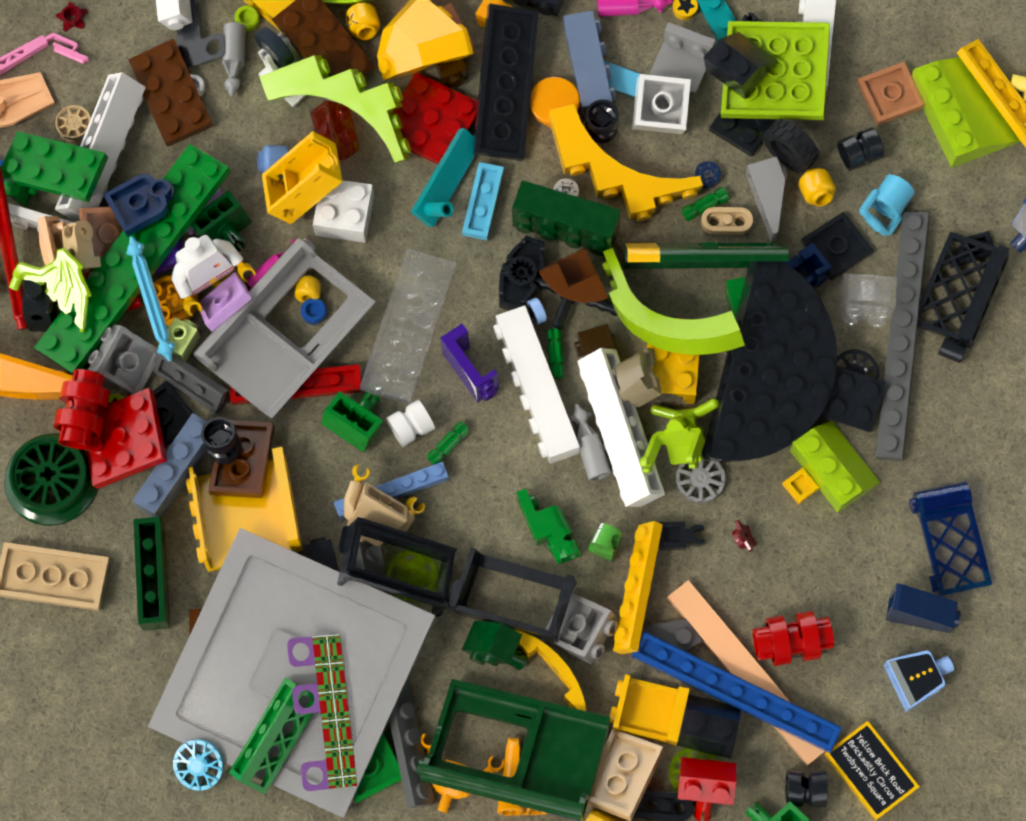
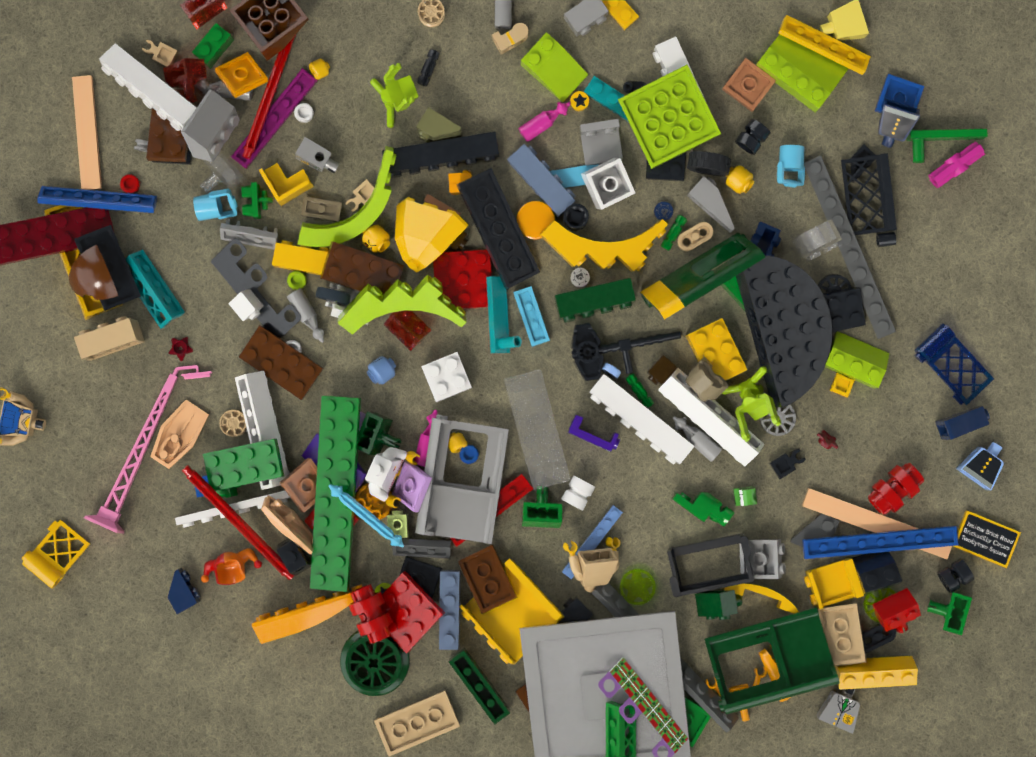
camera: 30 degrees left, 15 degrees up
(63, 282) = (305, 541): animal -> none
(78, 242) = (298, 510): tan leg -> none
(124, 359) = (372, 561): light grey plate -> none
(140, 202) = (317, 456): dark blue plate -> none
(221, 440) = (471, 579): black wheel -> none
(308, 176) = (410, 376): yellow piece -> none
(349, 548) = (595, 598): black piece -> none
(448, 443) = (608, 489): green axle -> none
(574, 278) = (625, 338): reddish brown brick -> none
(637, 588) = (782, 513): yellow plate -> none
(667, 333) = (719, 343): lime arch -> none
(738, 63) = (645, 126): black slope -> none
(839, 244) = (774, 209): black tile -> none

